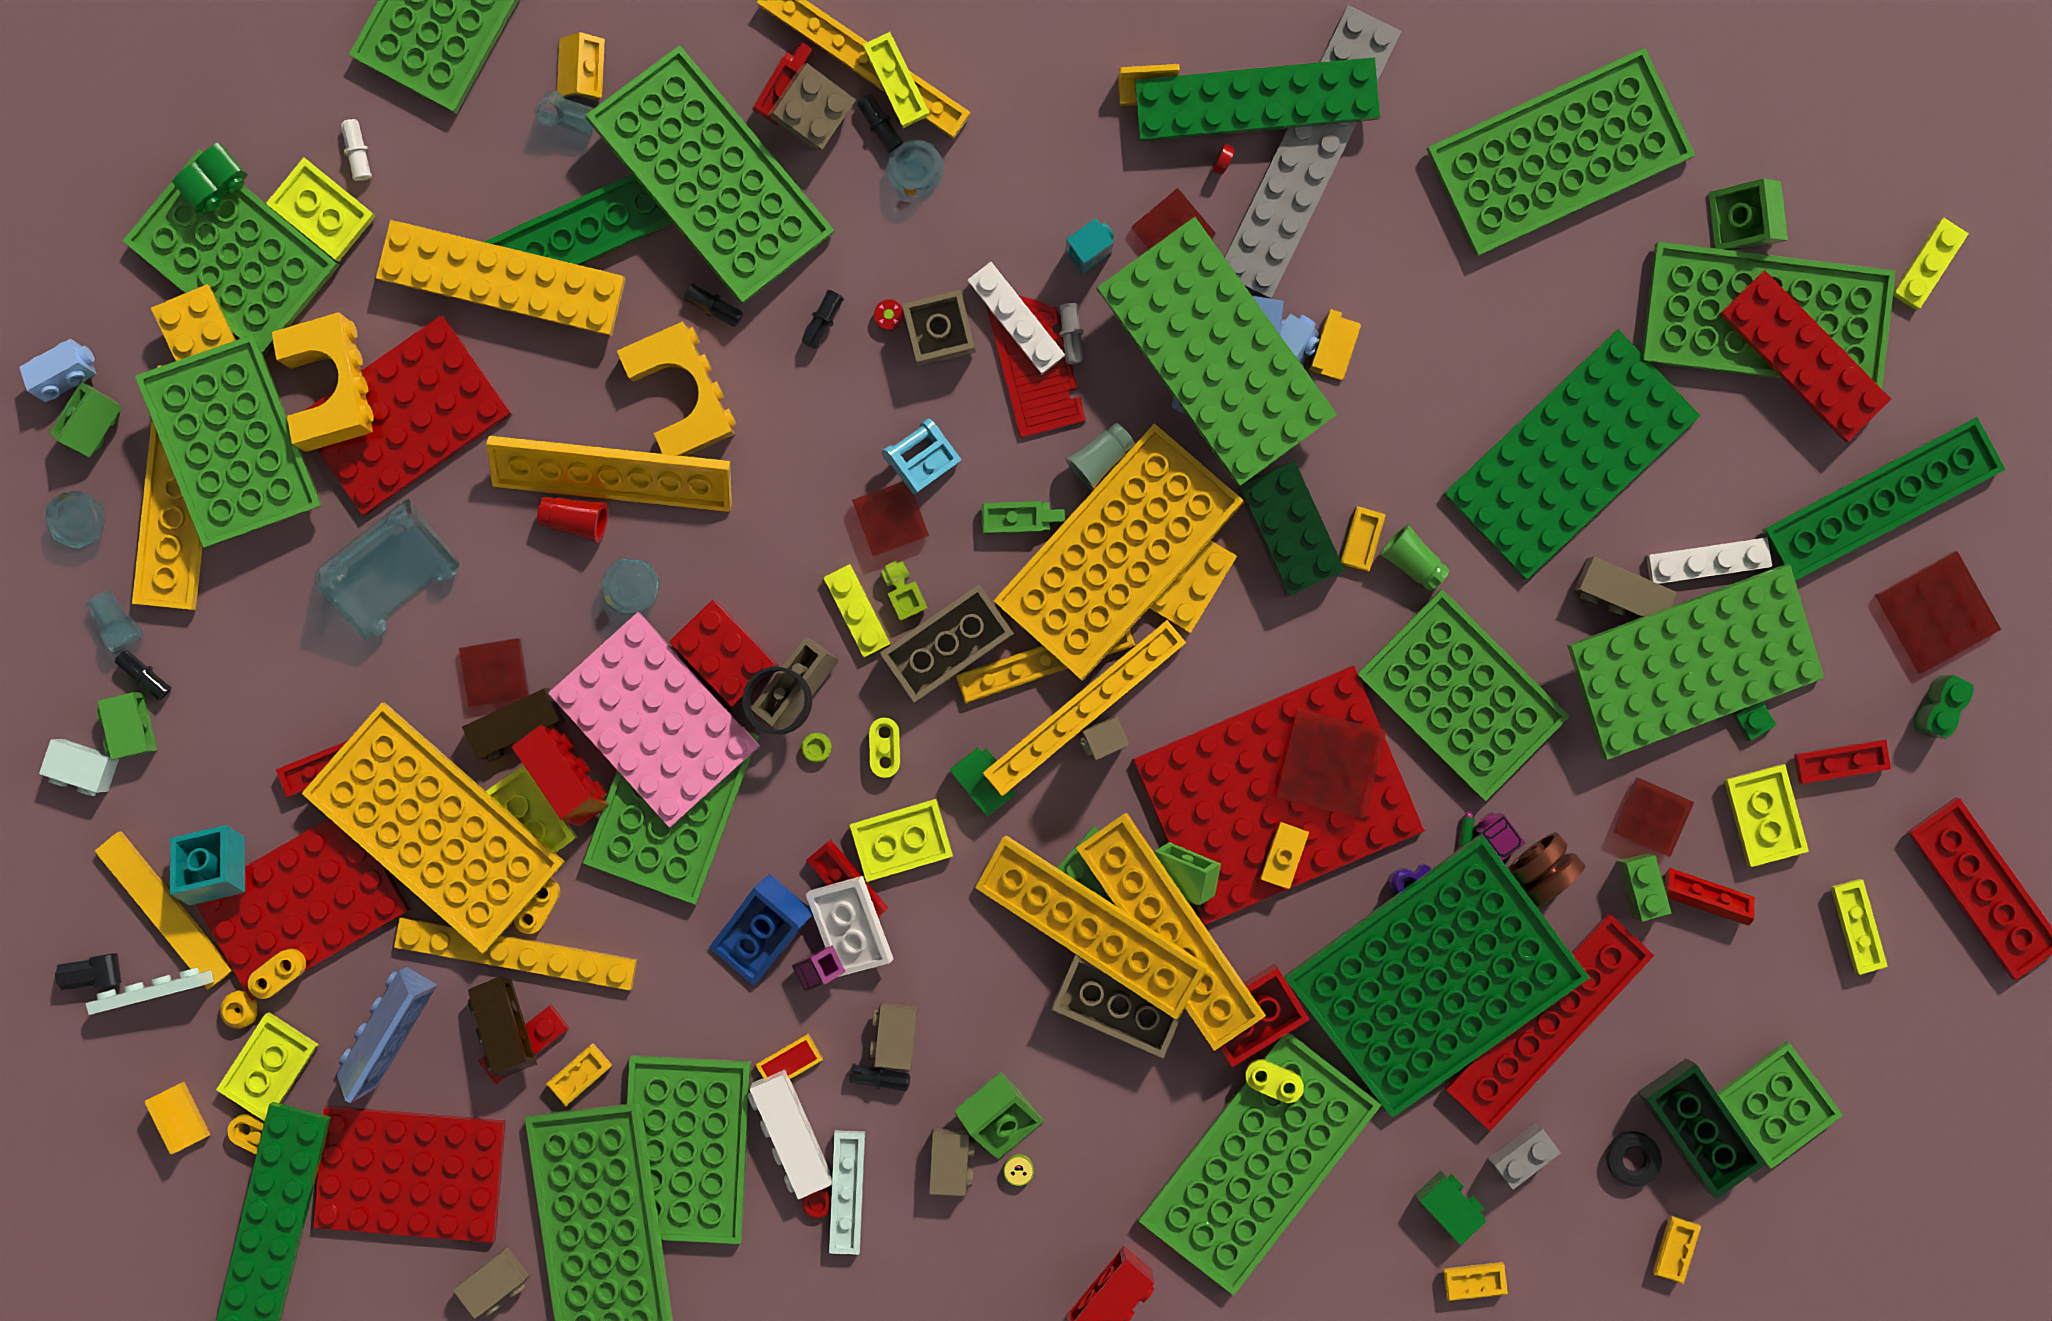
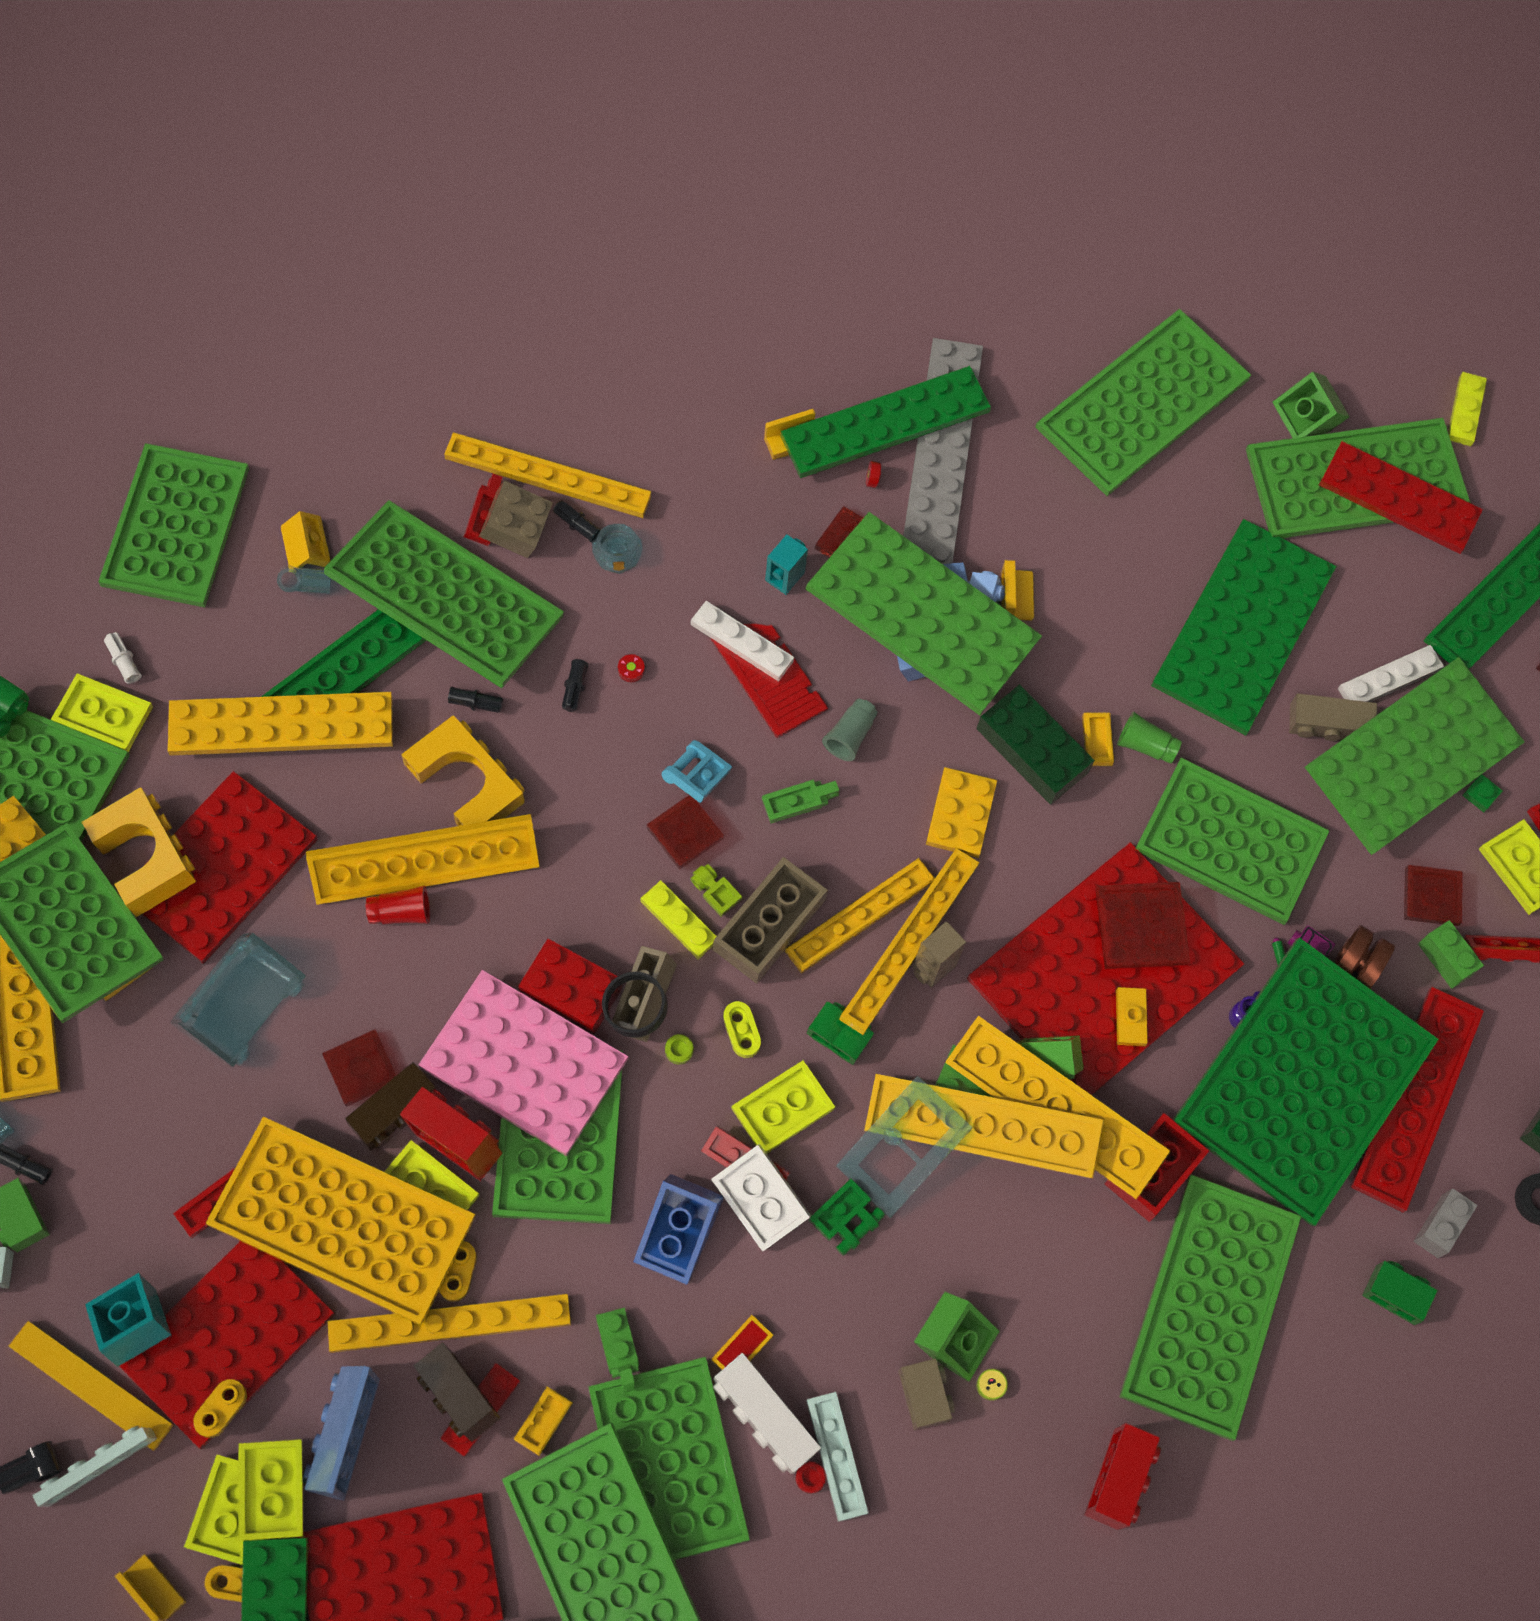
camera: 25 degrees left, 20 degrees down
(247, 1008) = (194, 1469): yellow plate -> none
(305, 1065) = (270, 1490): none -> neon yellow plate
(630, 586) = (467, 954): clear light blue hat -> none
(669, 1027) = (618, 1346): none -> bright green hinge
(818, 968) = (744, 1245): magenta brick -> none
(880, 1077) = (833, 1334): black axle -> none
(895, 1035) = (835, 1289): dark tan brick -> none
(896, 80) = (582, 479): neon yellow plate -> none
(926, 959) = (840, 1210): none -> green plate
(939, 328) = (679, 663): dark tan brick -> none
(991, 895) = (884, 1128): none -> clear light blue door
(1071, 333) = (793, 640): light grey axle -> none
(1112, 1008) = (1030, 1196): dark tan brick -> none
(1118, 551) = (894, 803): yellow plate -> none
(1275, 1080) = (1198, 1221): neon yellow plate -> none
(1475, 1281) = (1448, 1357): yellow plate -> none

